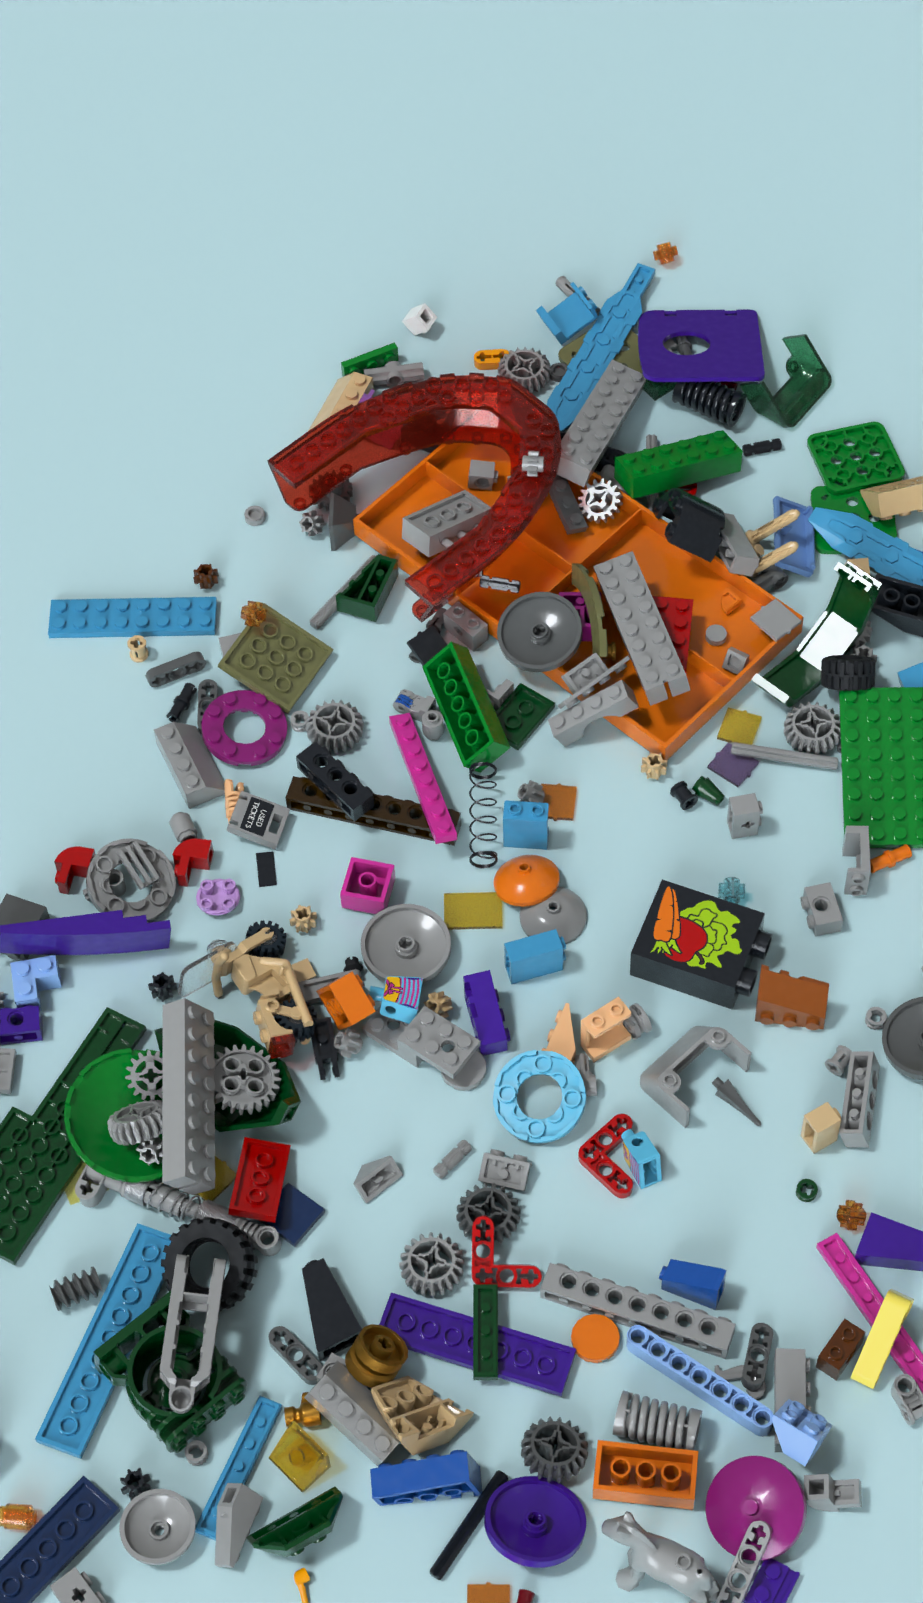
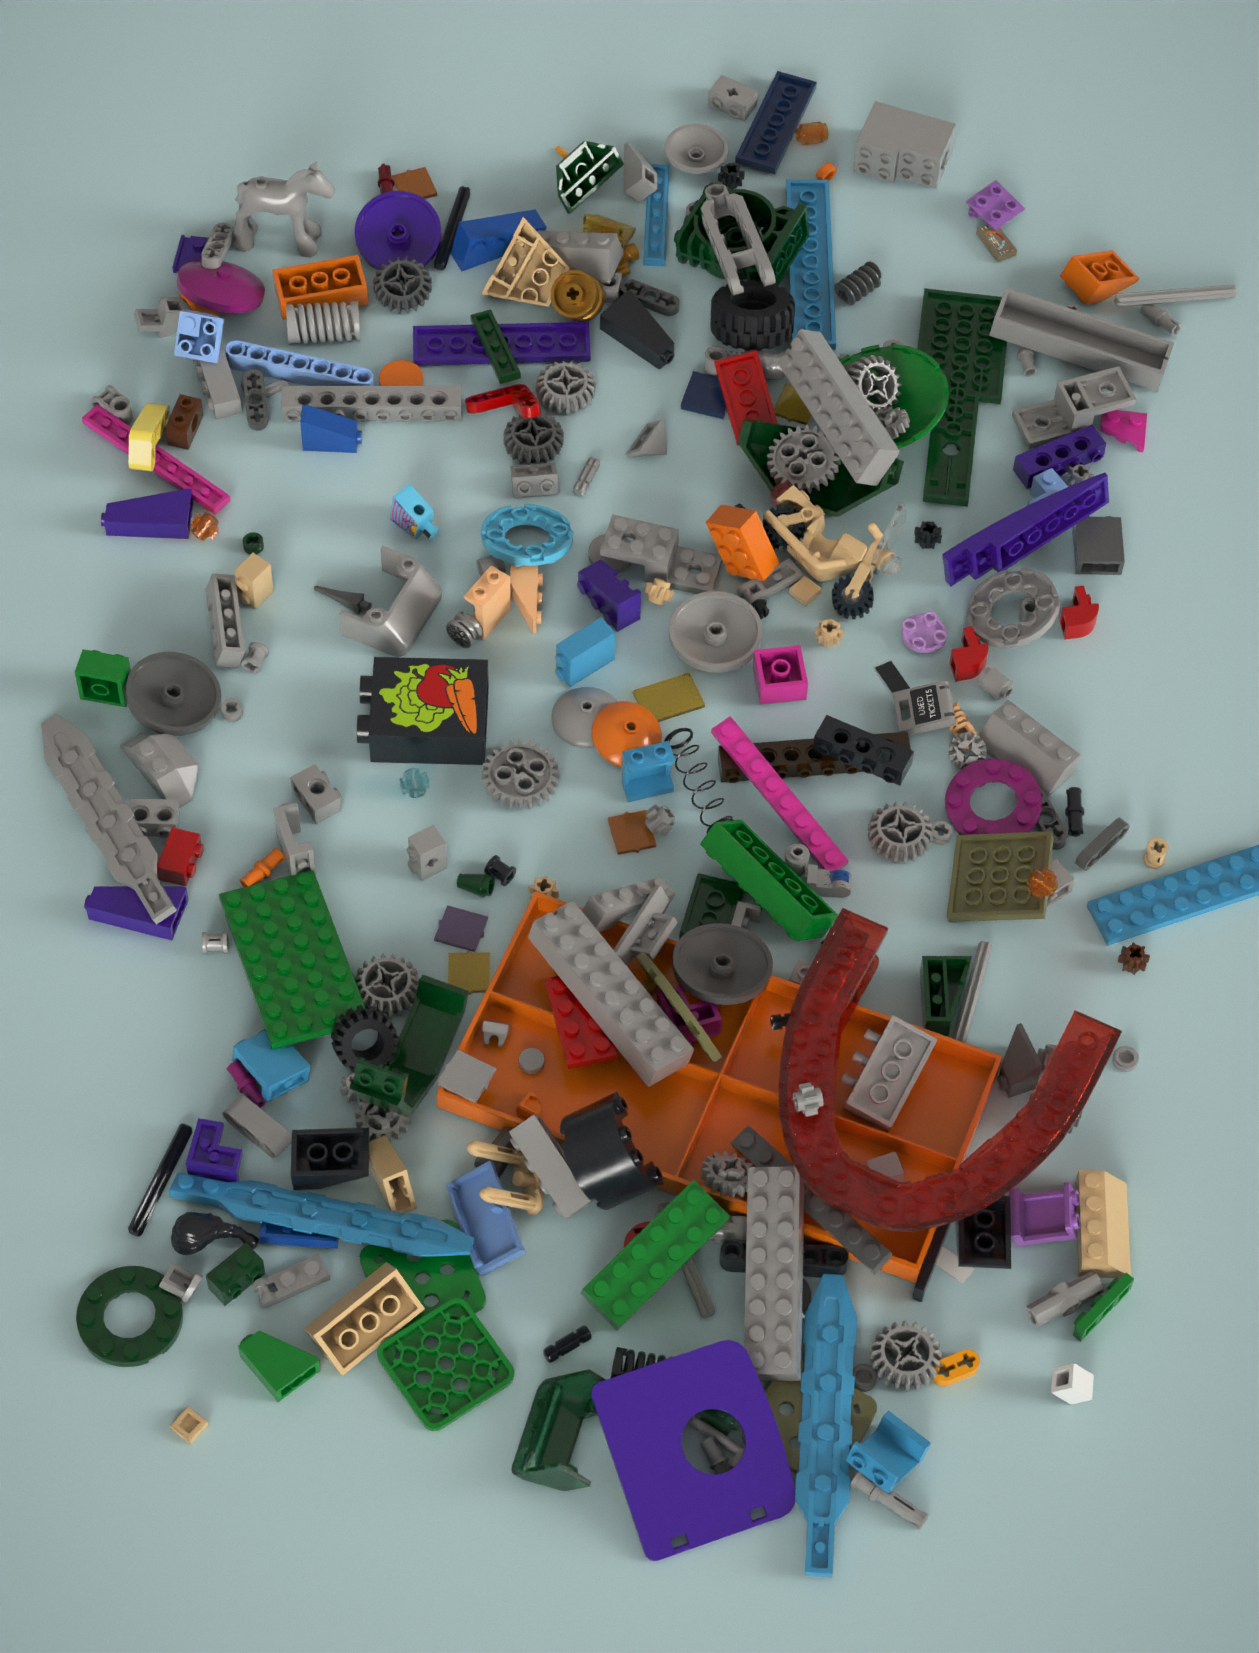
camera: 155 degrees right, 0 degrees up
(31, 1453) = (826, 172): none -> orange tile
(128, 849) = (1014, 611): light grey tile -> none
(241, 774) = (962, 741): none -> light grey gear
(398, 997) = (697, 574): medium azure torso -> none
(601, 1159) = (452, 518): red beam -> none
(633, 872) = (520, 774): none -> light grey gear
(665, 253) = (803, 1608): clear orange gear -> none
(784, 755) = (408, 946): light grey axle -> none
(791, 1000) = (319, 685): dark orange wedge -> none

